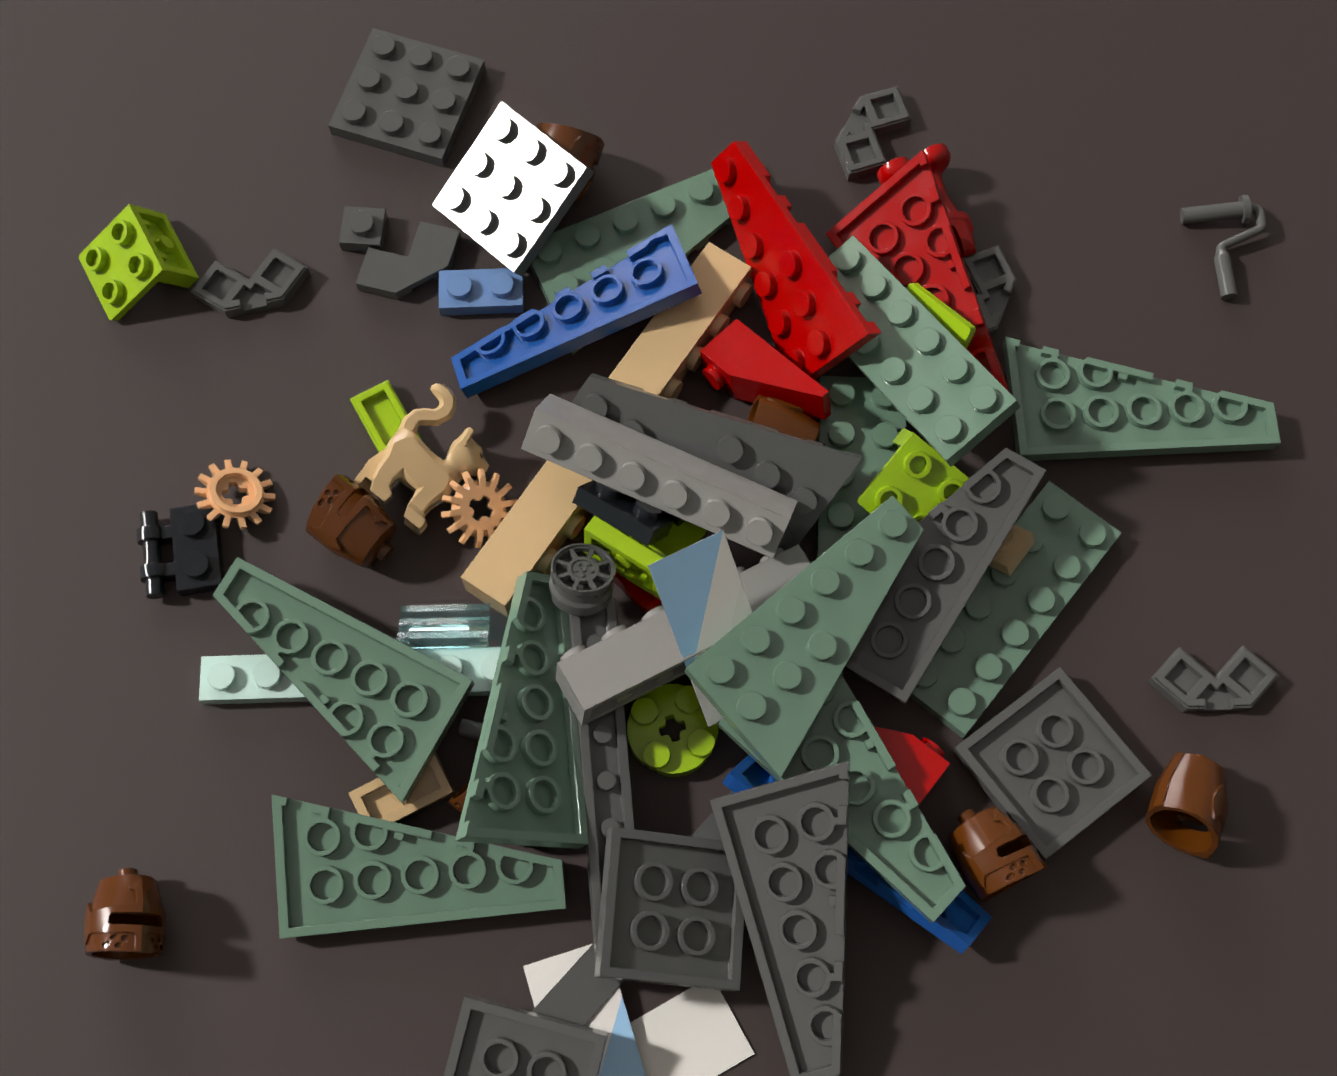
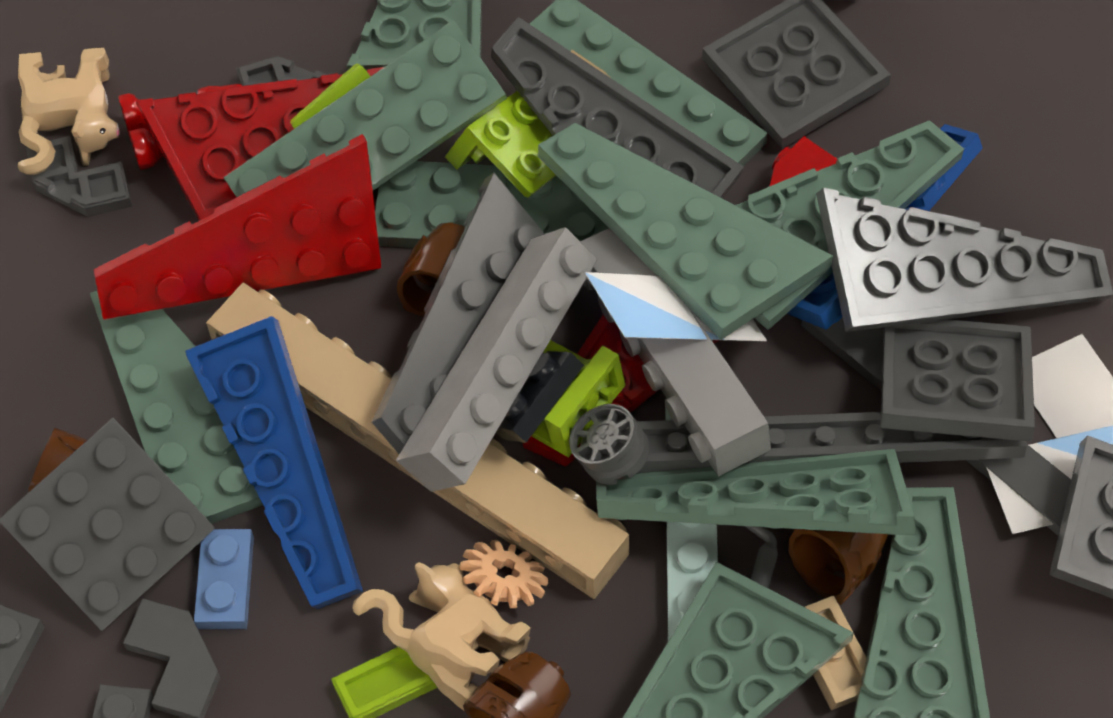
camera: 85 degrees left, 10 degrees down
(445, 620) = (632, 647): clear light blue tile -> none
(658, 751) = (776, 370): lime plate -> none
(752, 367) = (364, 289): red slope -> none
(942, 101) = (61, 102): none -> tan animal
(993, 852) = (887, 106): reddish brown helmet -> none

